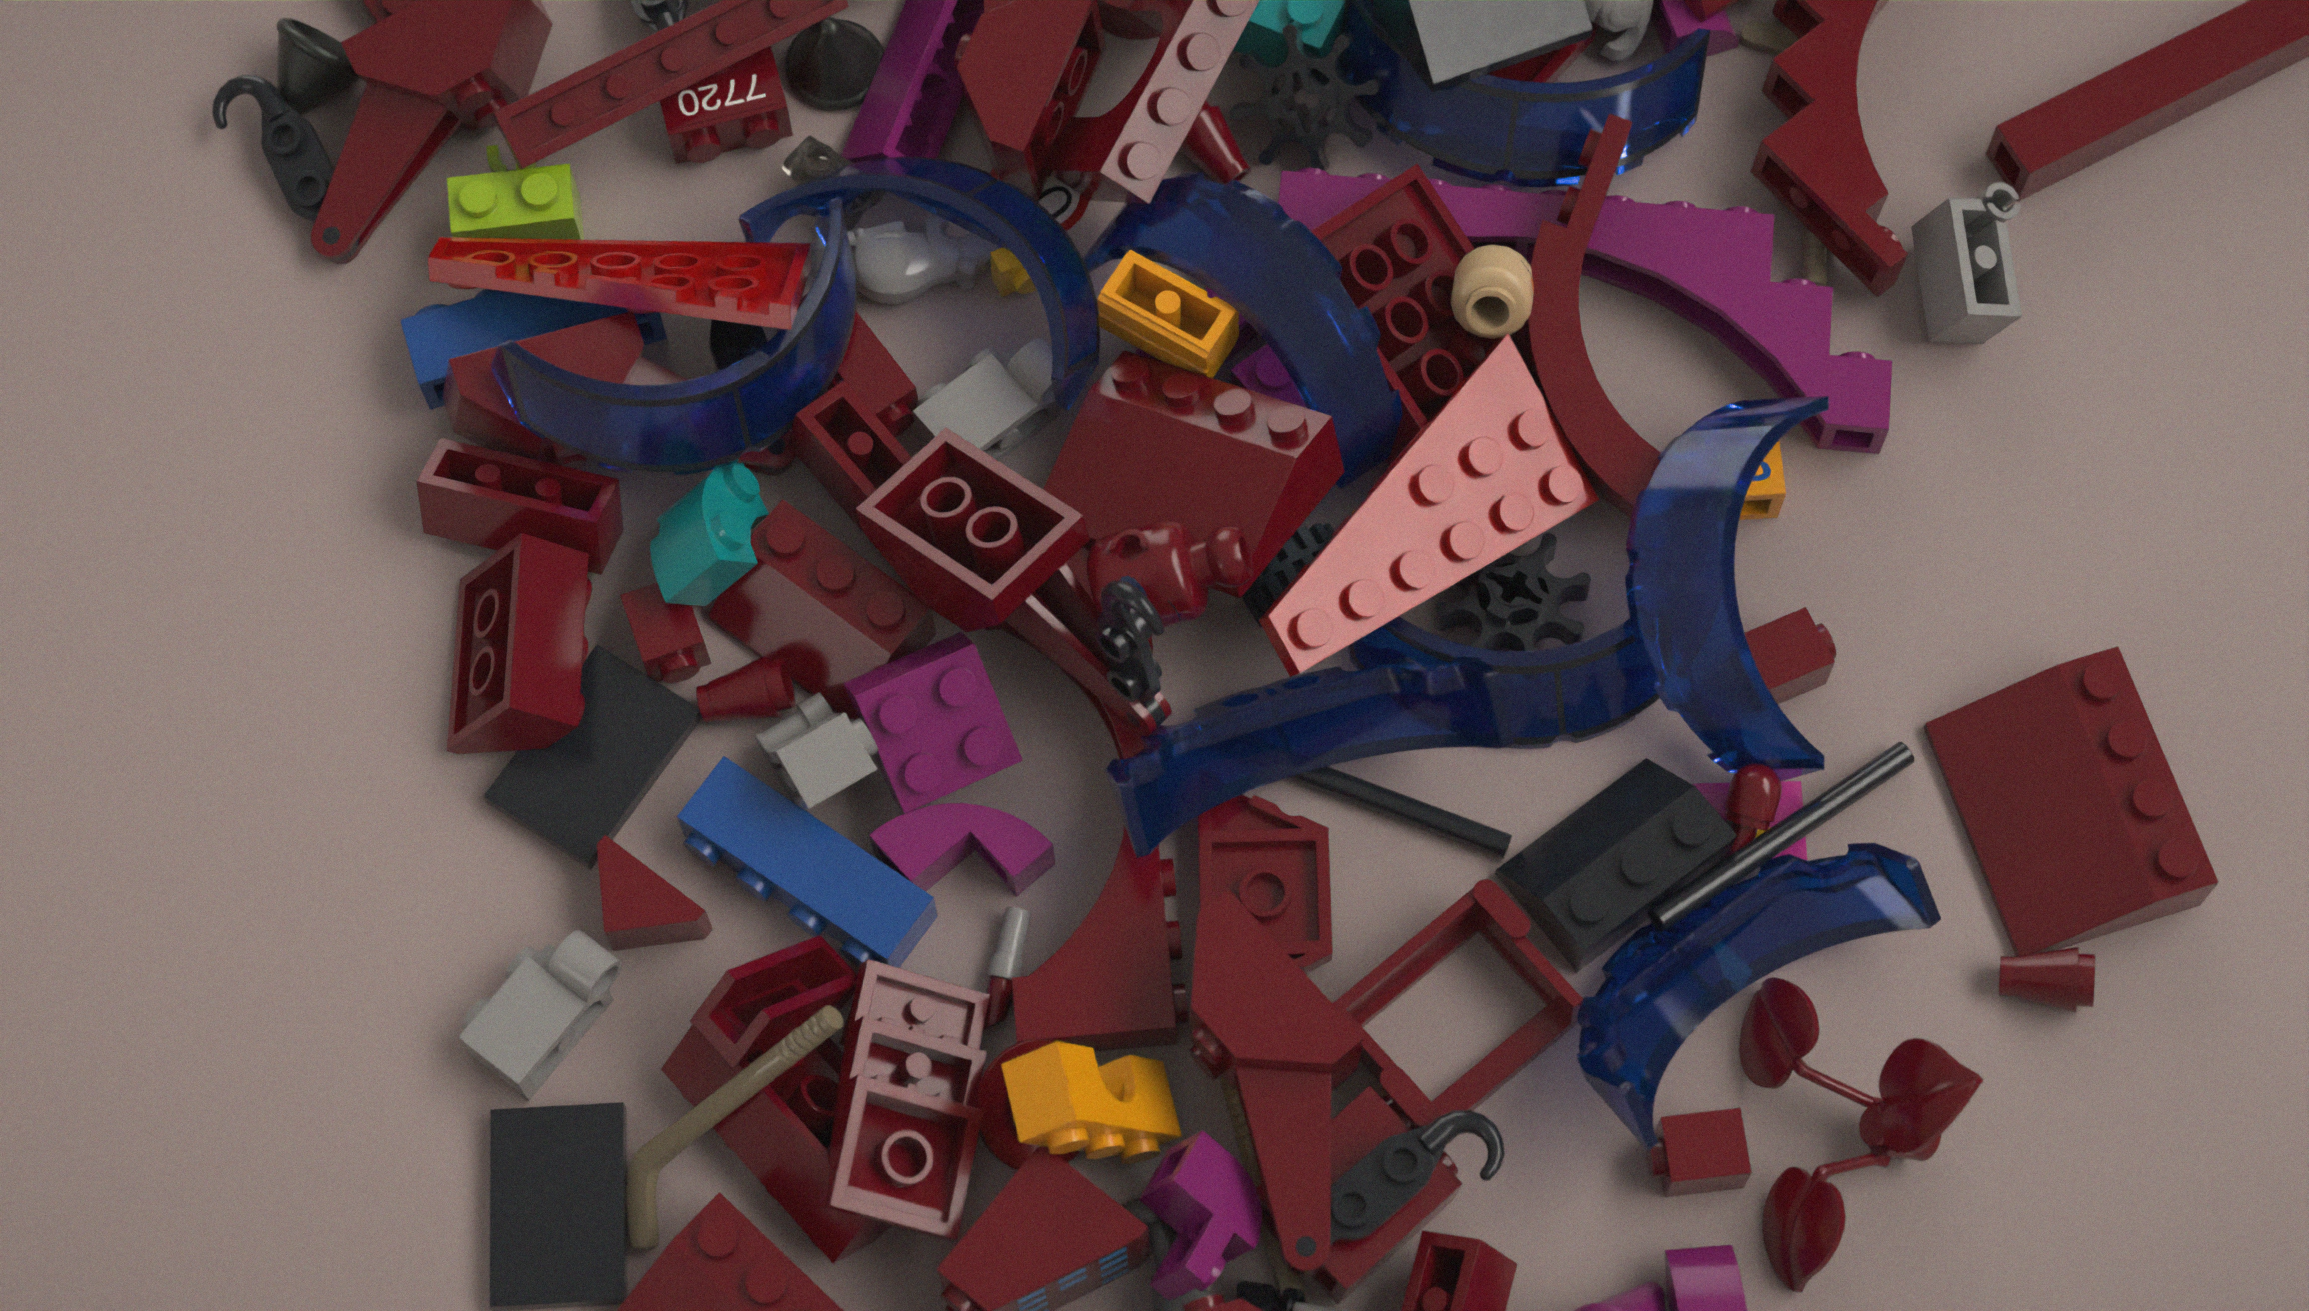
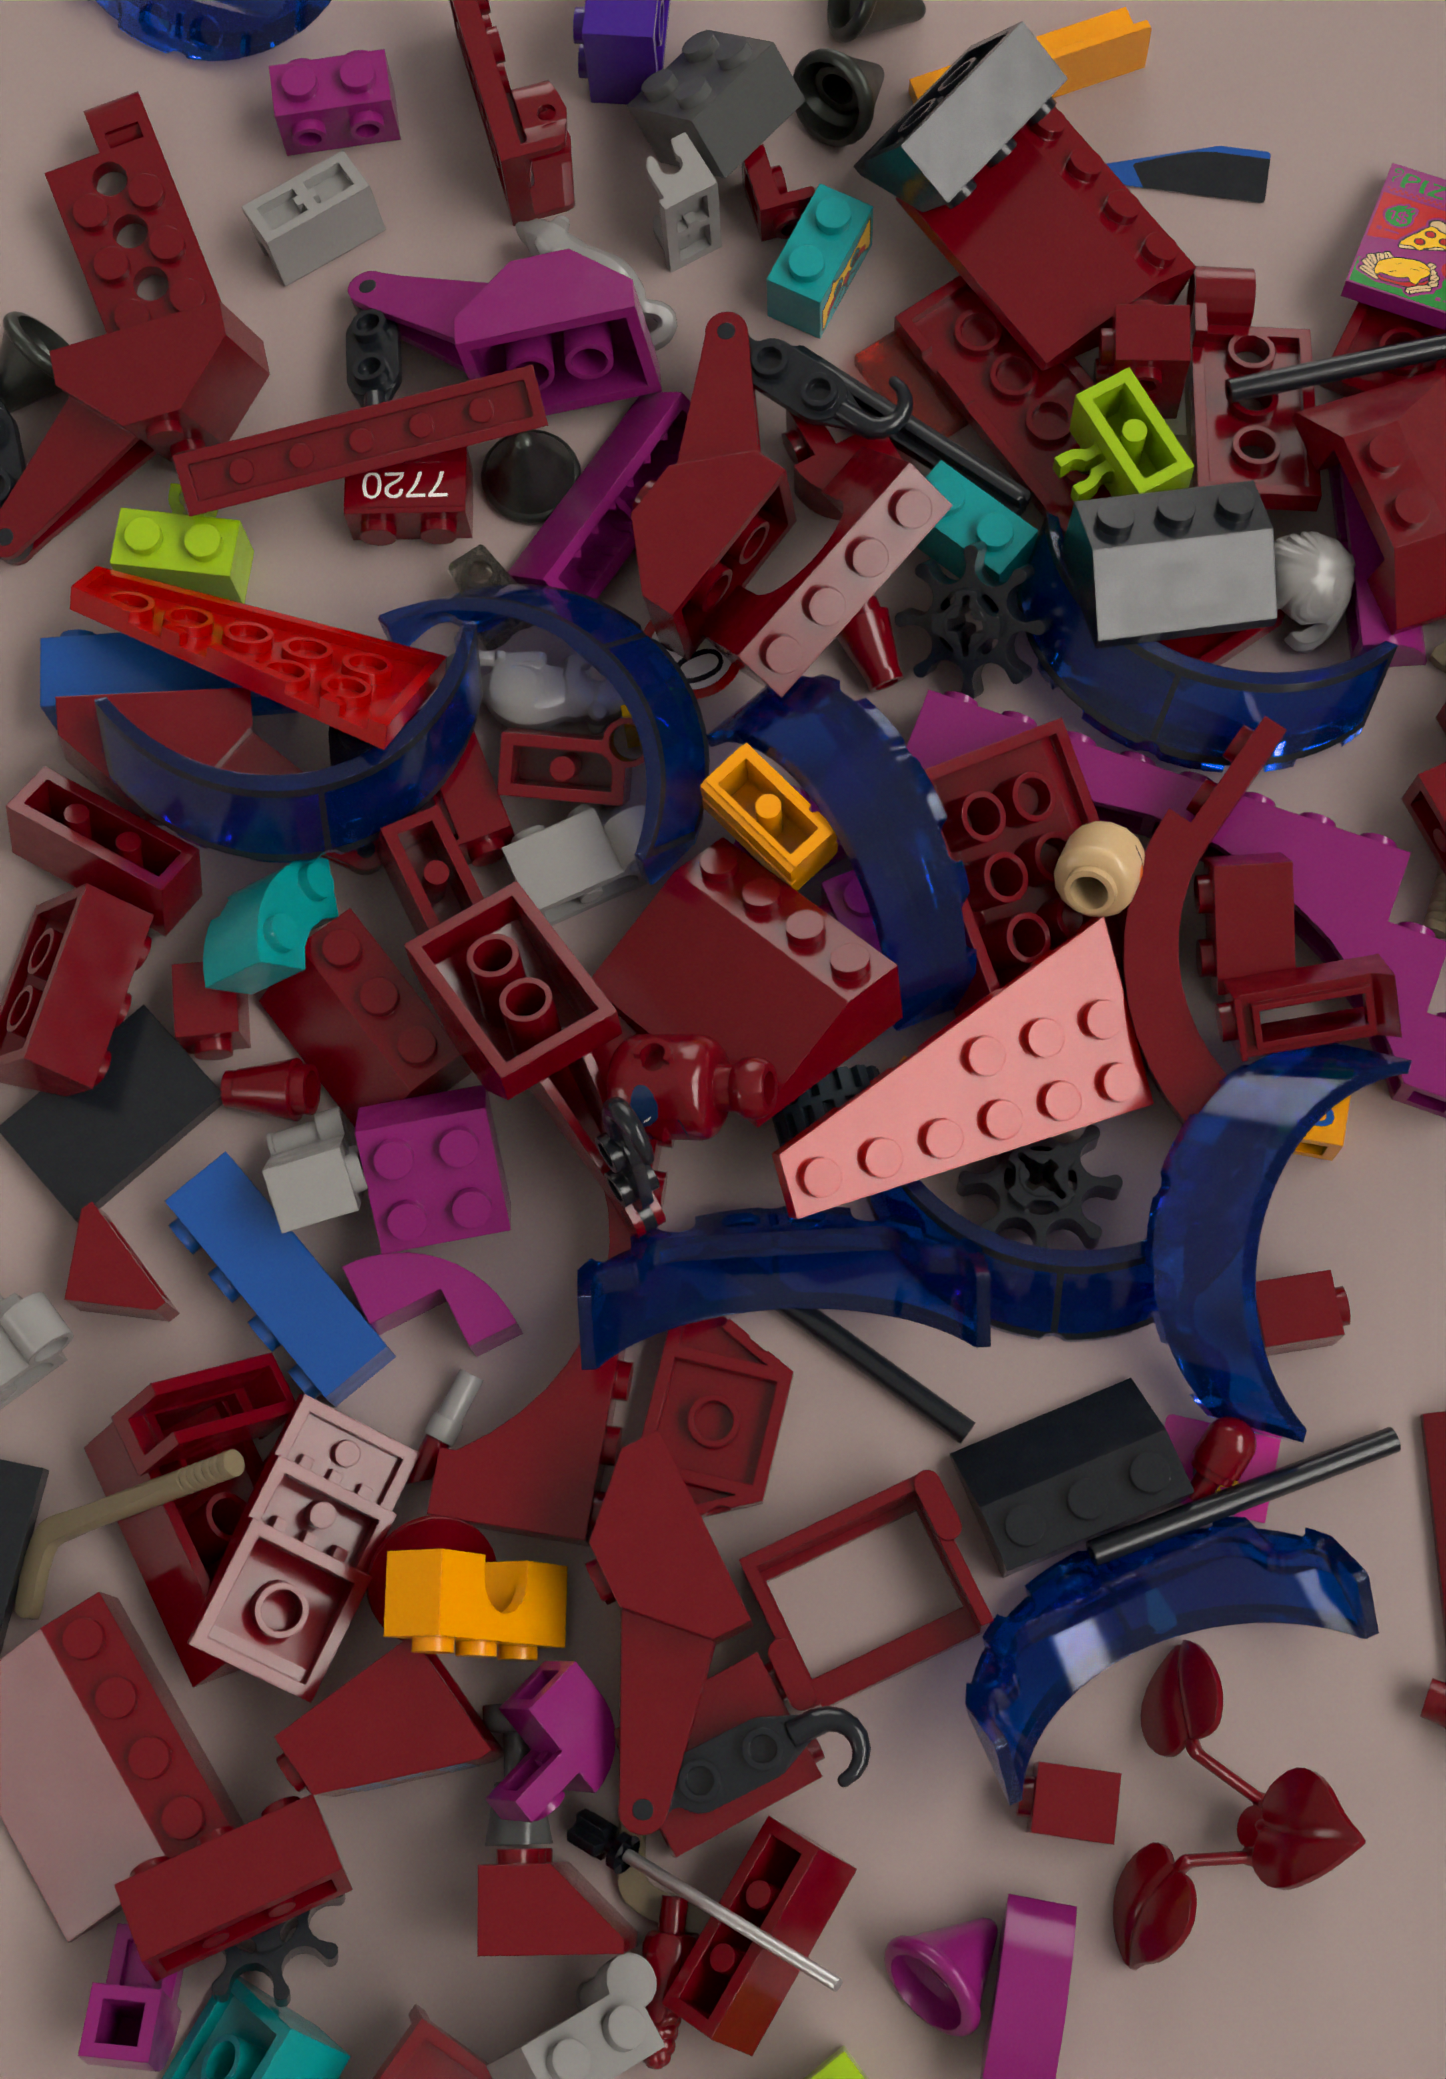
camera: 20 degrees right, 5 degrees up
(955, 319) = (565, 766): none -> dark red hinge
(1644, 317) = (1246, 916): none -> dark red hinge
(1659, 391) = (1245, 996): none -> dark red window

